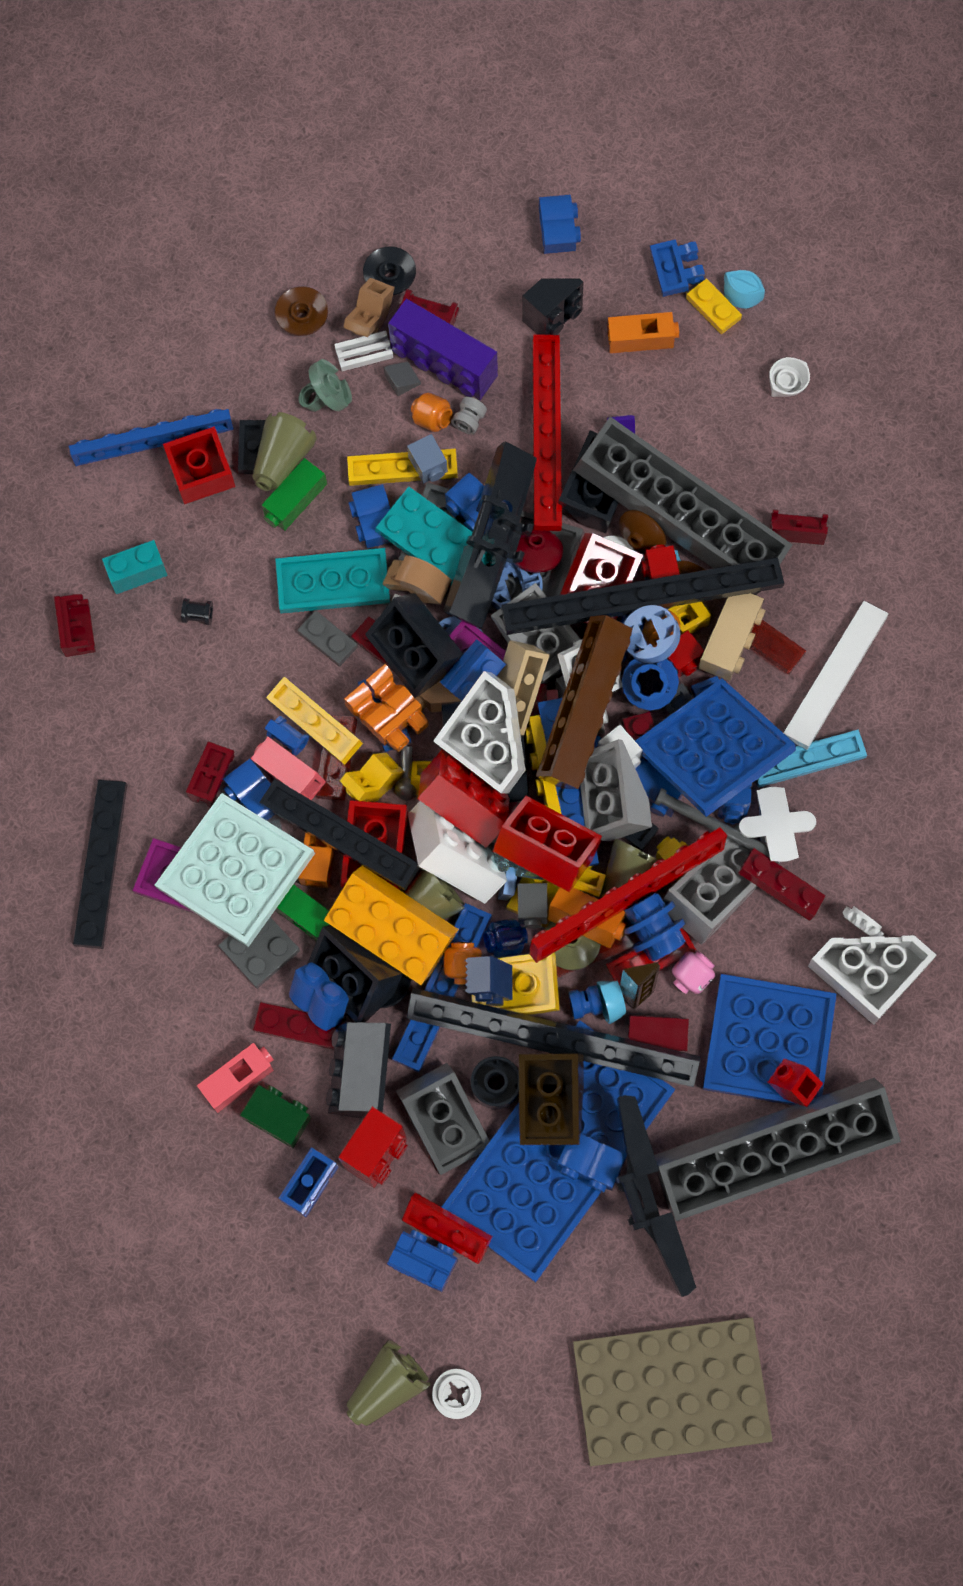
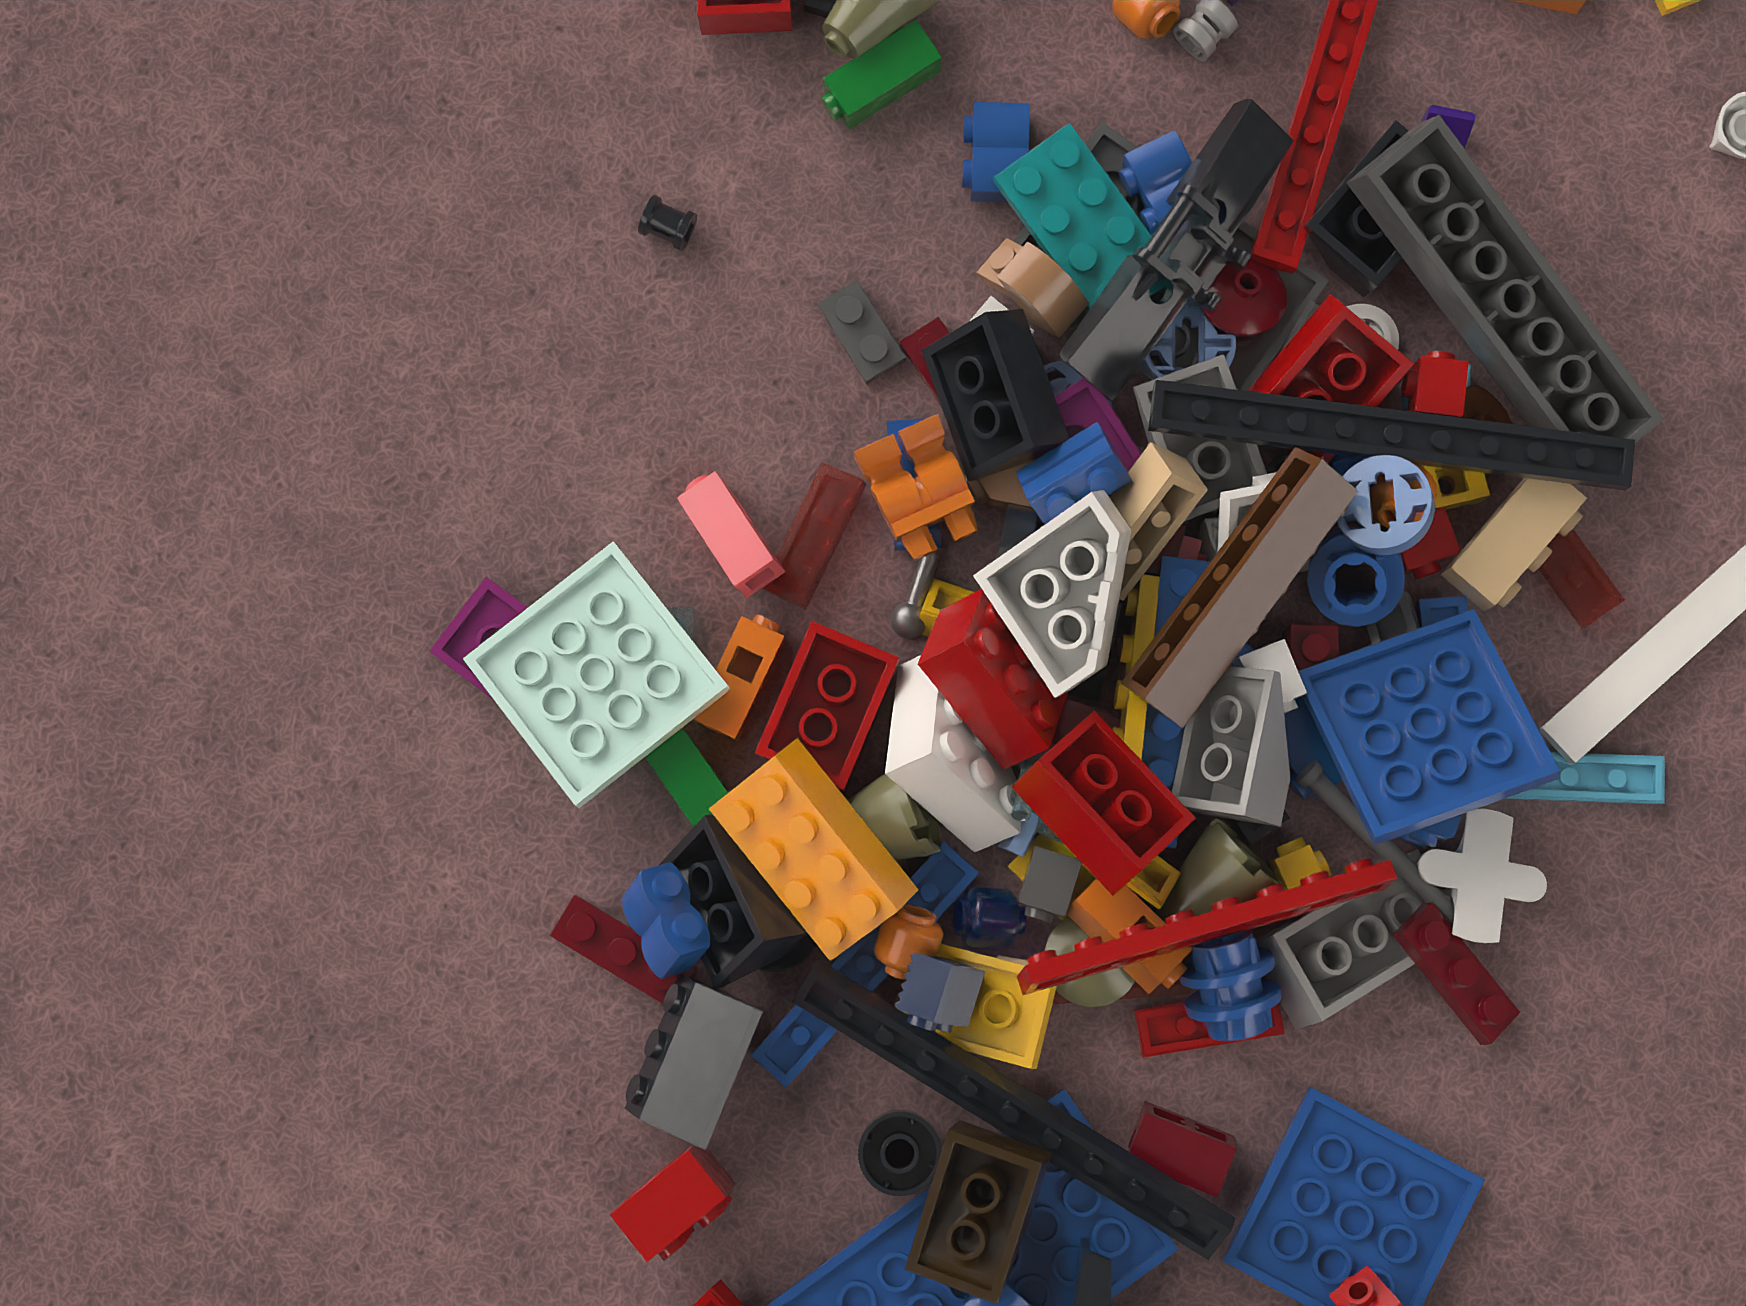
camera: 20 degrees right, 10 degrees up
(74, 625) = (467, 183): dark red hinge -> none
(100, 864) = (393, 589): black plate -> none
(134, 567) = (590, 117): teal brick -> none
(209, 773) = (606, 500): dark red hinge -> none
(236, 1077) = (500, 1003): coral brick -> none
(248, 787) = (665, 551): blue brick -> none
(265, 954) = (606, 822): dark grey plate -> none
(276, 1116) = (543, 1085): dark green brick -> none
(287, 735) = (746, 477): blue piece -> none
(308, 1182) = (559, 1211): blue brick -> none
(314, 720) = (797, 466): yellow plate -> none
(332, 580) = (898, 238): teal plate -> none
(340, 834) = (777, 676): black plate -> none
(373, 779) = (860, 591): yellow brick -> none
(391, 468) = (1070, 82): yellow plate -> none
(427, 459) = (1115, 85): sand blue brick -> none
(443, 1118) = (800, 1173): dark grey slope -> none
(585, 1002) = (1070, 1062): blue wheel -> none
(612, 1000) = (1123, 1075): medium azure hat -> none
(639, 983) = (1177, 1082): dark brown slope -> none
(641, 531) = (1423, 317): reddish brown dish -> none
(693, 972) = (1268, 1070): bright pink head -> none
(800, 528) = (1683, 387): dark red hinge -> none
(863, 921) = (1567, 1080): white gear -> none
(871, 970) = (1556, 1166): white brick -> none

